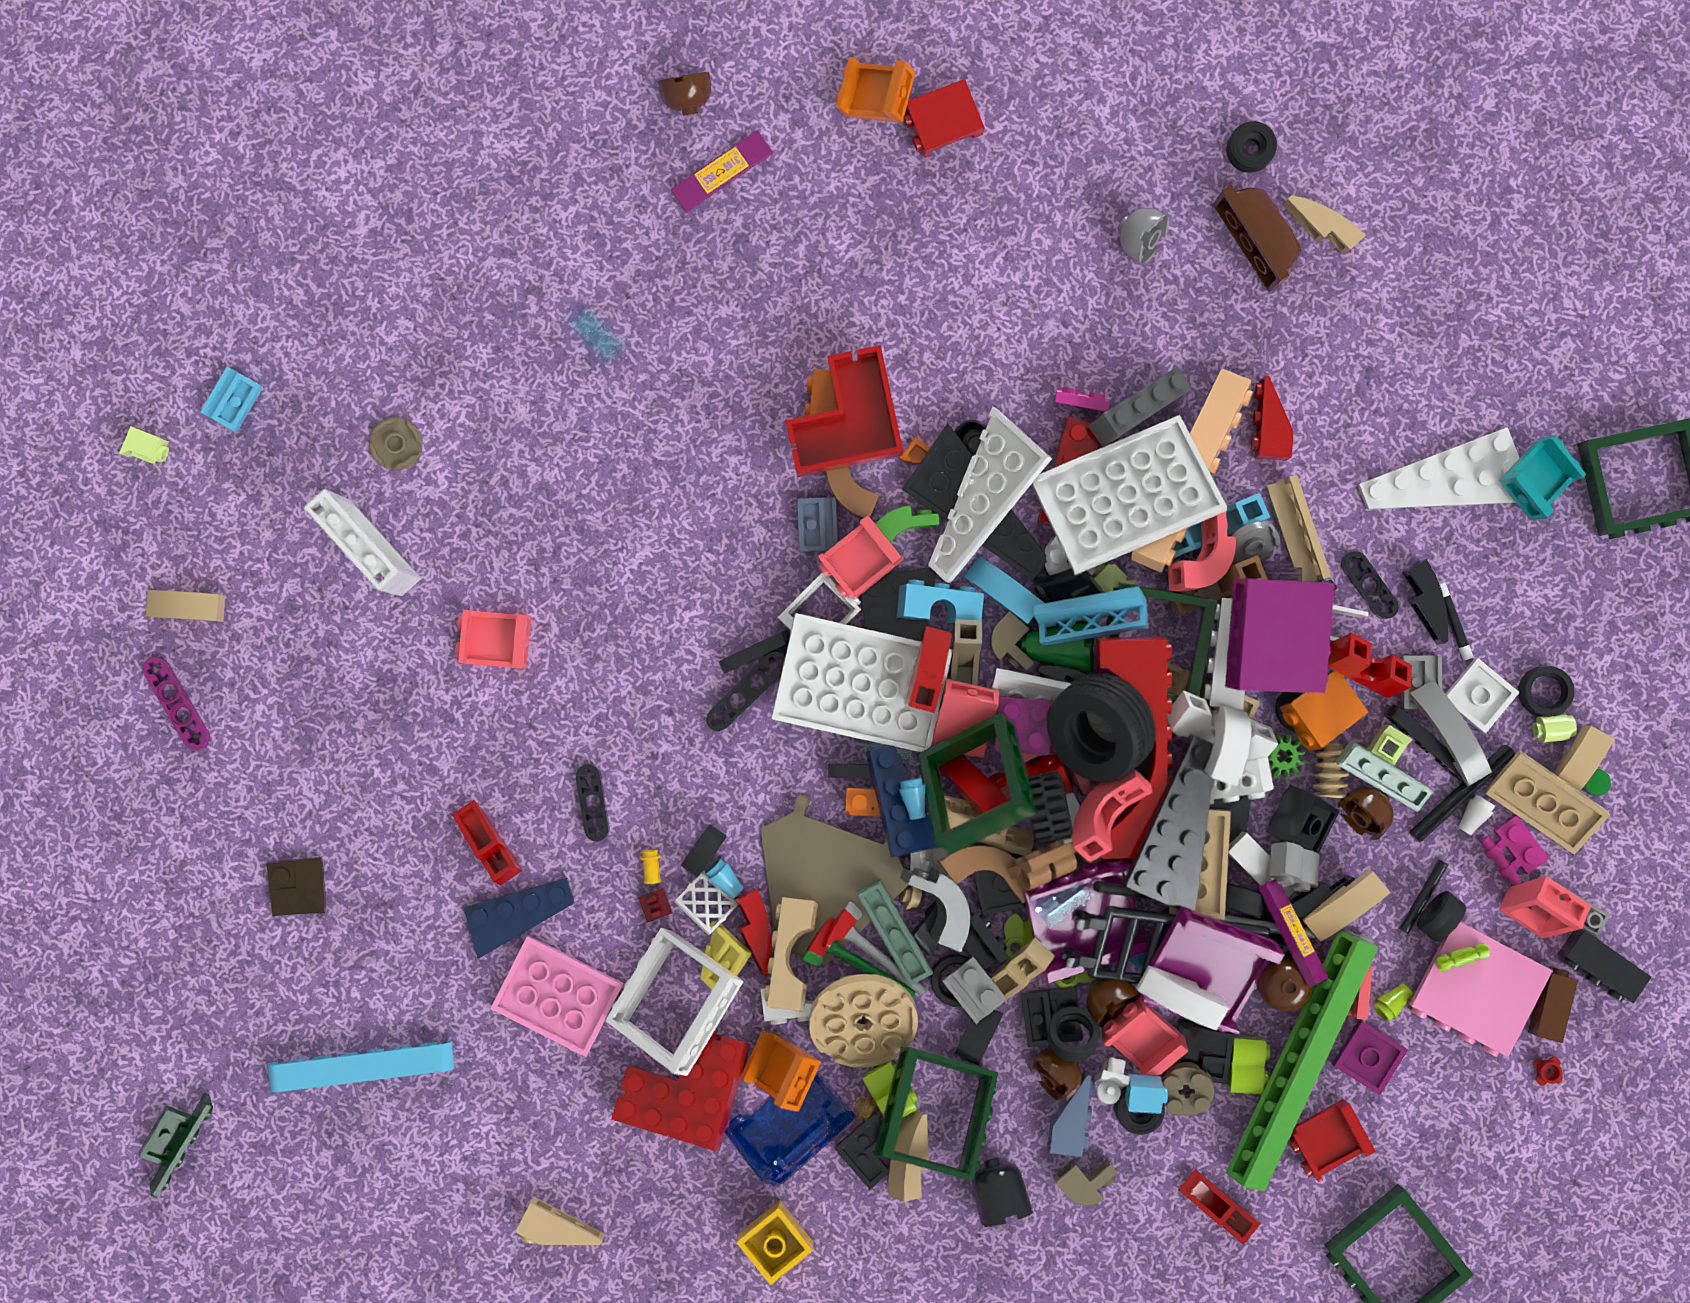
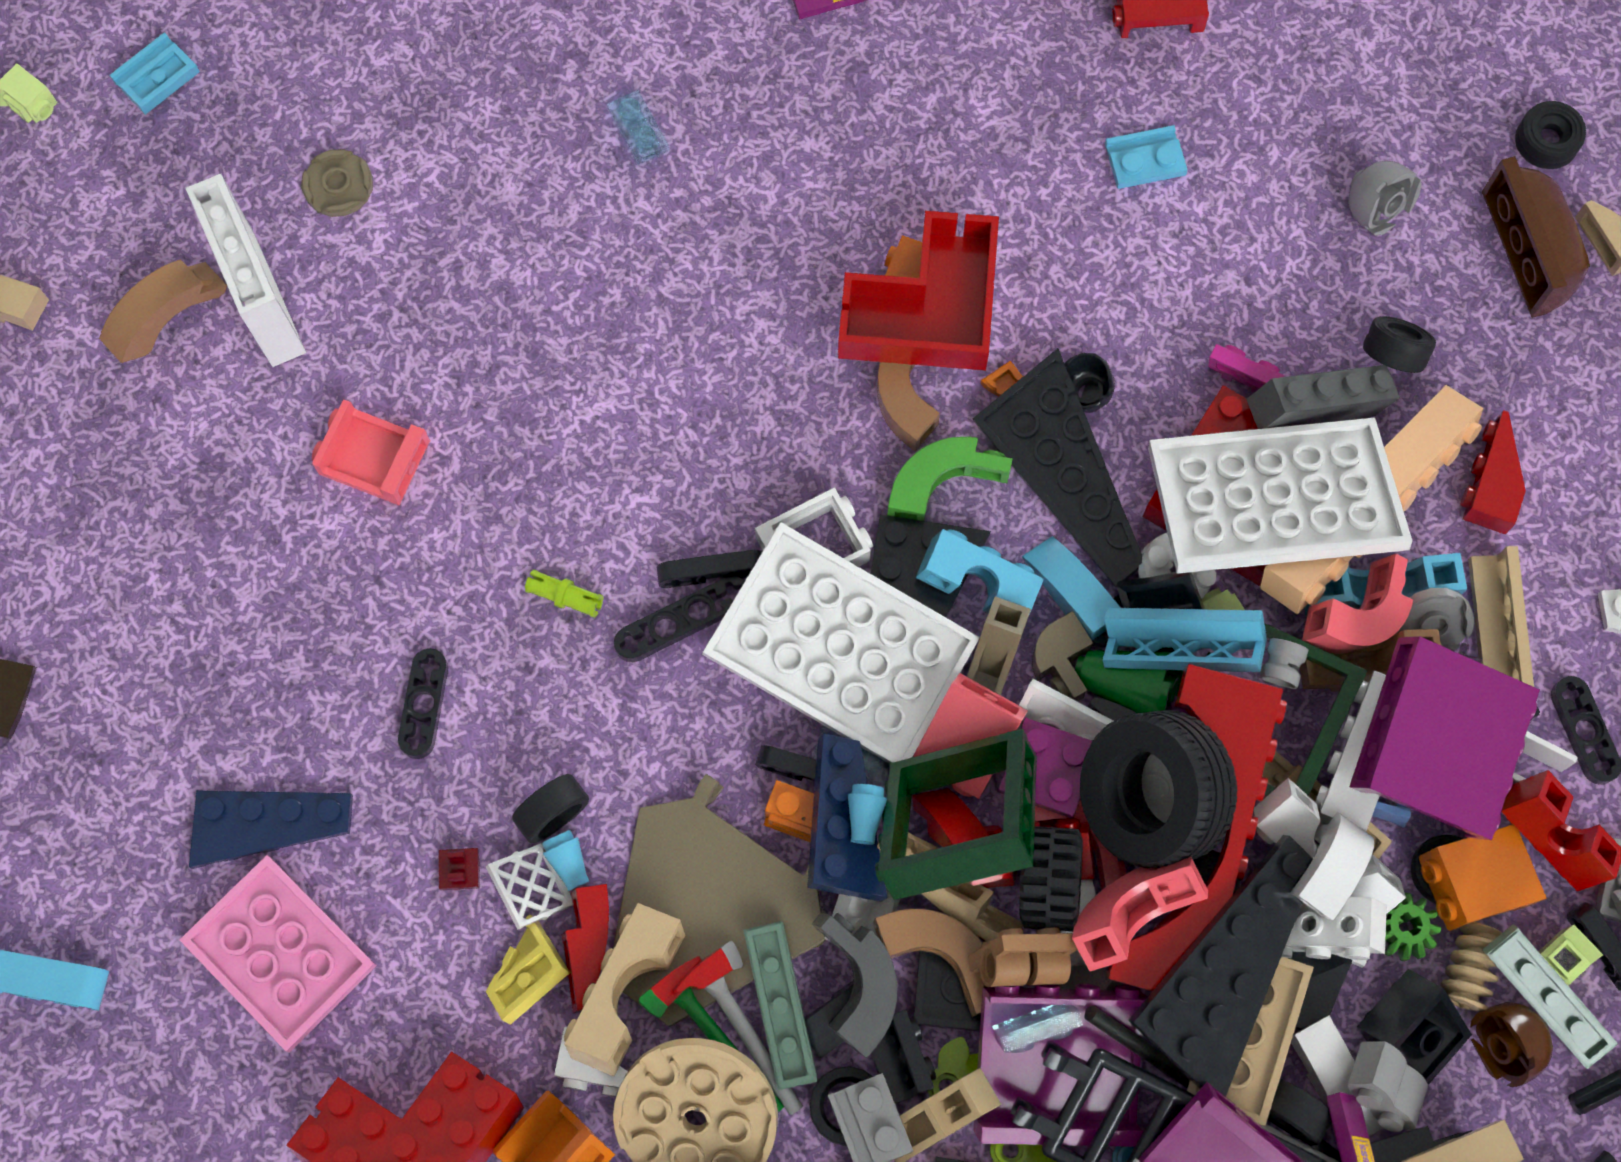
camera: 20 degrees right, 15 degrees down
(304, 579) = (153, 302): none -> medium nougat arch
(486, 843) = (261, 714): red slope -> none
(651, 866) = (471, 813): yellow pin -> none
(661, 698) = (564, 593): none -> lime pin
(704, 1023) = (467, 1040): white window -> none
(817, 524) = (846, 432): sand blue plate -> none
(860, 559) = (890, 483): coral panel -> none
(911, 897) = (819, 964): tan plate -> none
(929, 670) = (937, 650): red slope -> none
(967, 249) = (1145, 157): none -> medium azure plate
(991, 486) = (1092, 440): white wing -> none
(1161, 614) = (1283, 663): none -> light grey wheel
(1182, 346) = (1399, 344): none -> black tyre

